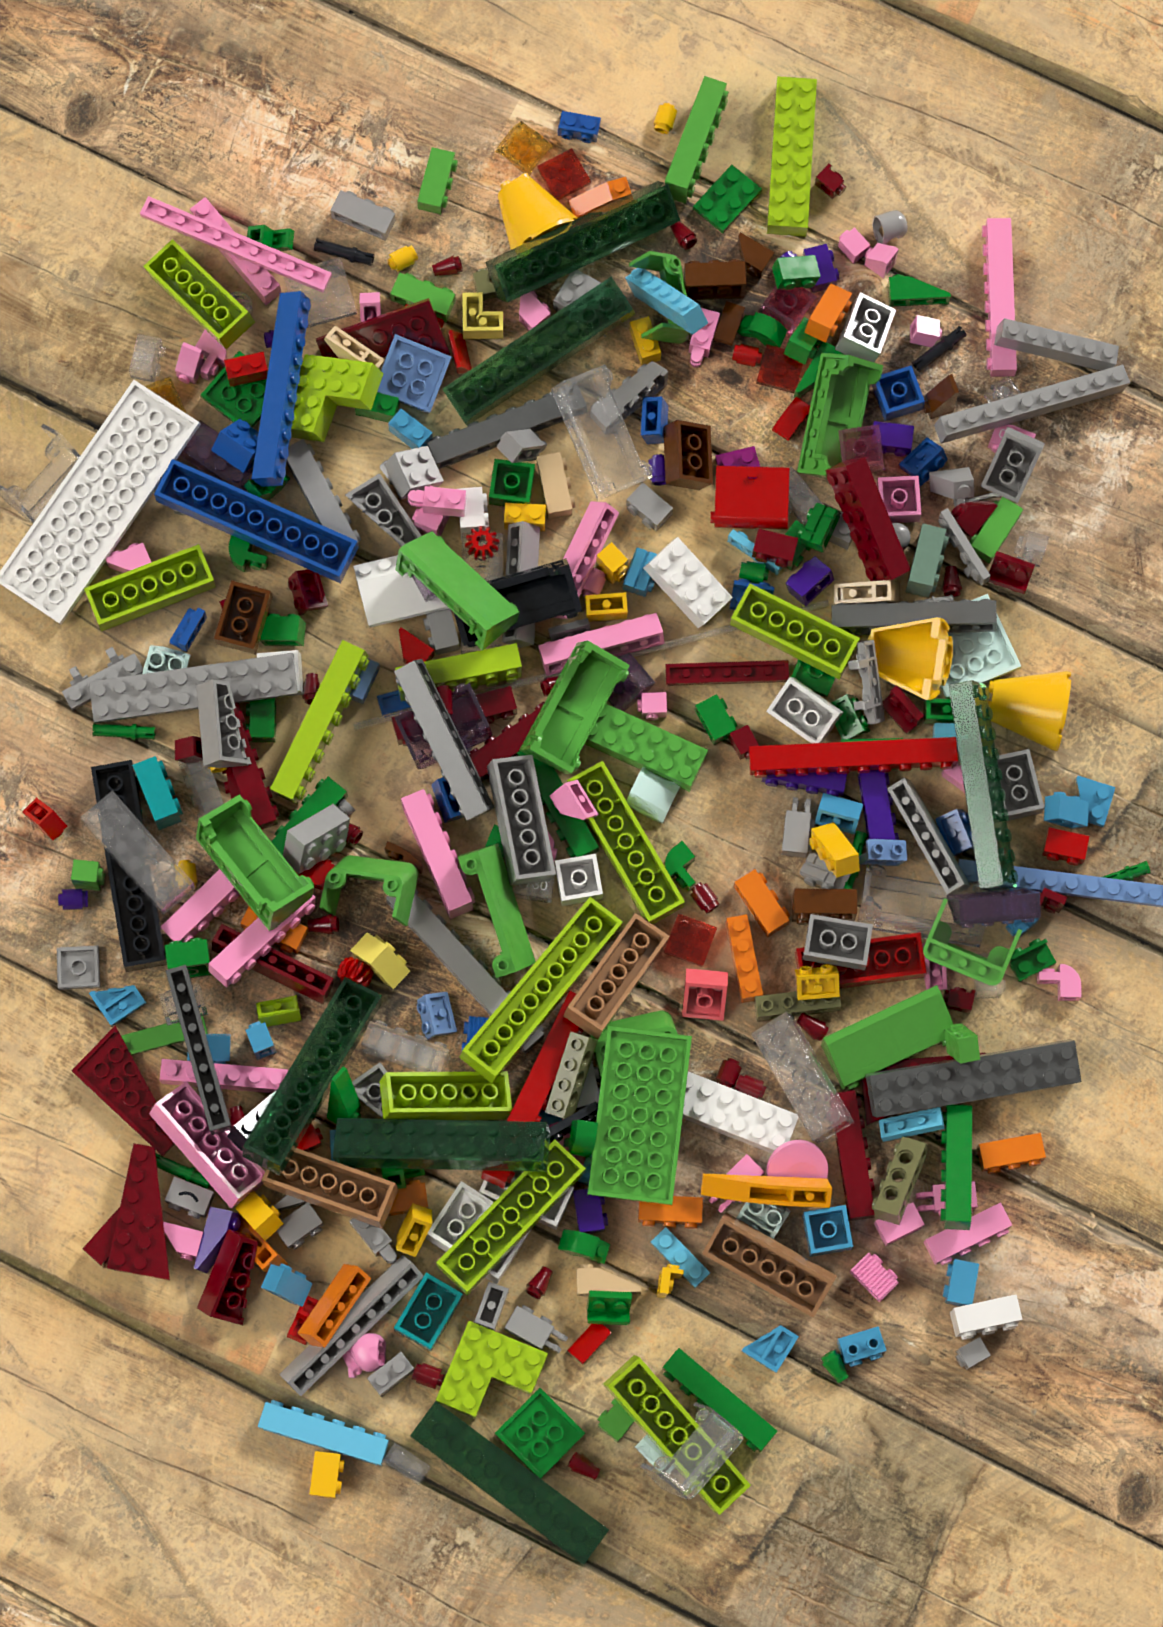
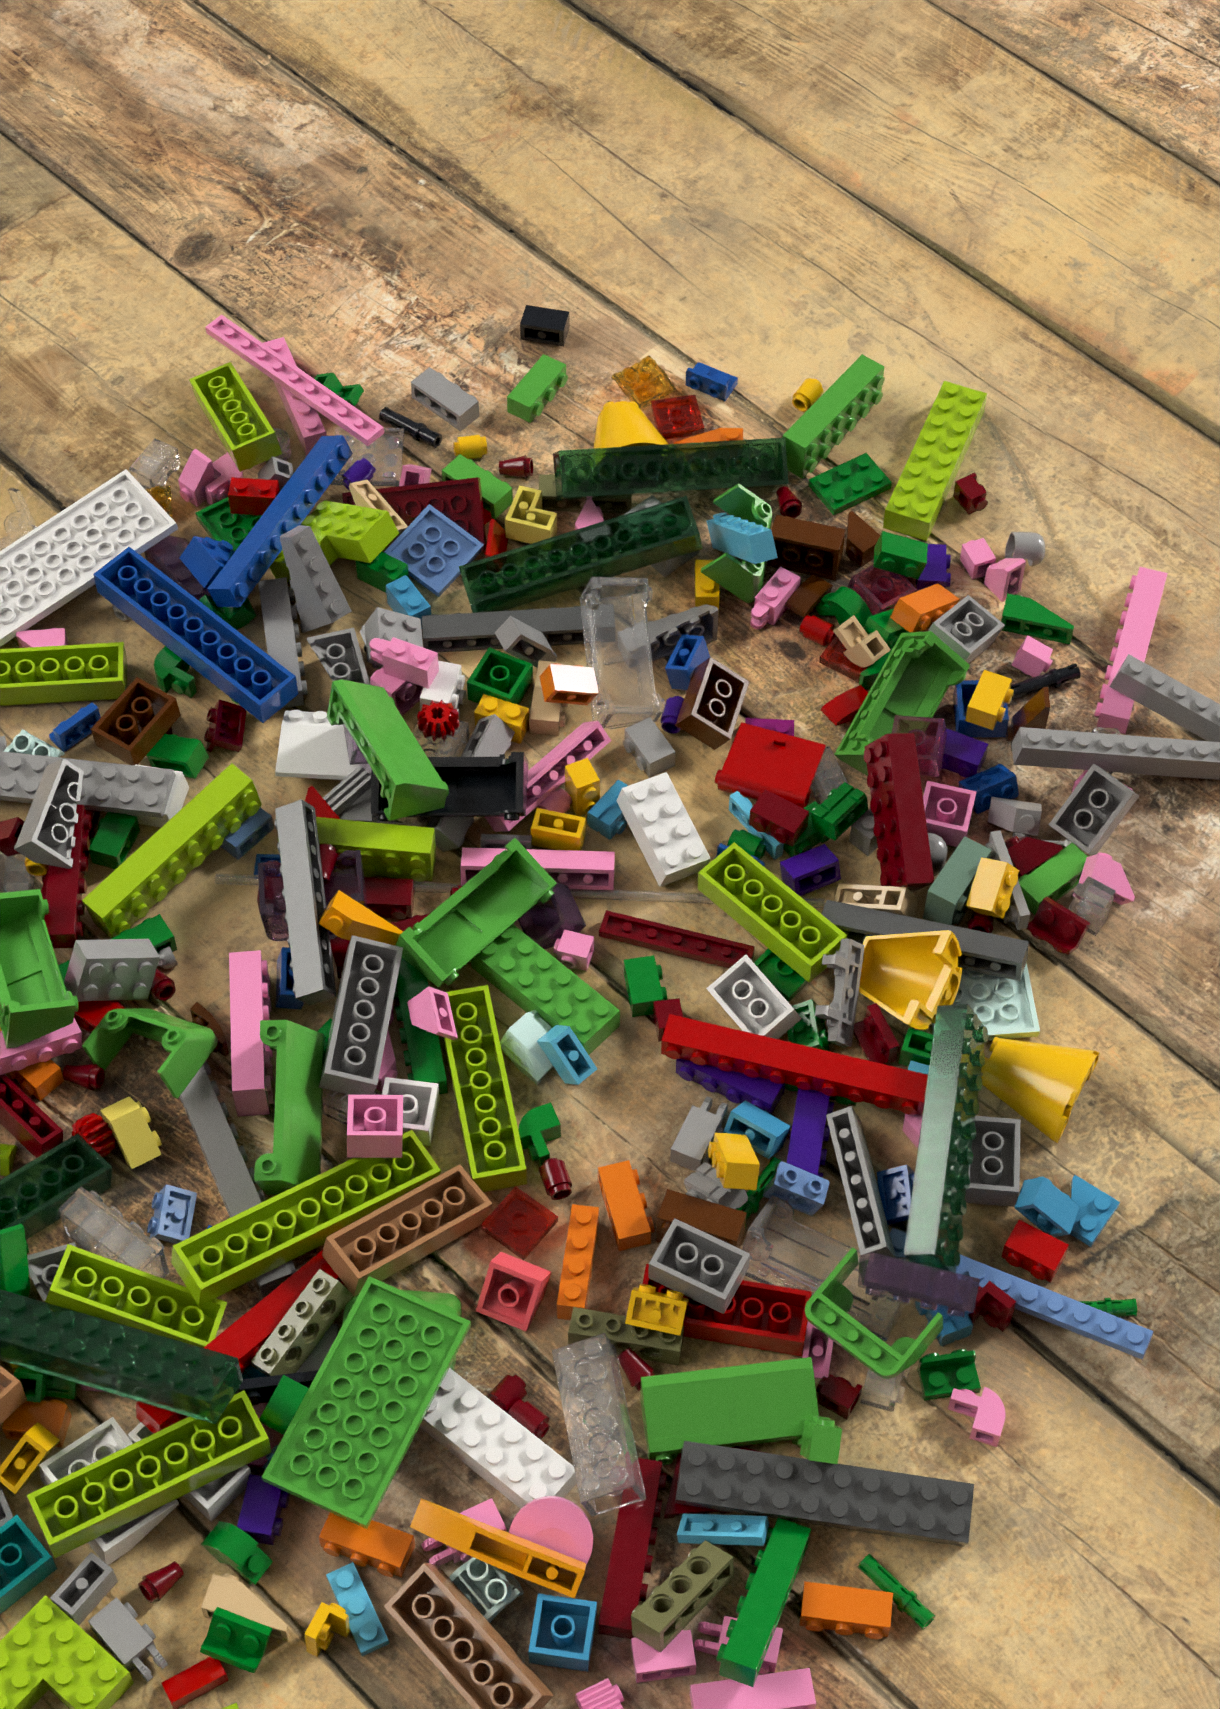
camera: 20 degrees right, 20 degrees down
(255, 340) = (276, 470): none -> light grey brick
(323, 320) = (359, 471): none -> dark purple brick
(333, 444) = (314, 584): none -> light grey wedge
(420, 113) = (542, 324): none -> black brick
(431, 621) = (348, 790): none -> light grey tile
(487, 745) = (348, 918): none -> light orange slope
(567, 907) = (375, 1126): none -> bright pink brick
(571, 474) = (568, 684): none -> brick
(681, 798) = (567, 1054): none -> medium azure brick
(788, 366) = (861, 647): none -> tan brick
(906, 391) = (989, 699): none -> yellow brick
(956, 562) = (992, 887): none -> yellow brick
(1036, 520) = (1111, 874): none -> bright pink slope
(1037, 1126) = (906, 1600): none -> green pin

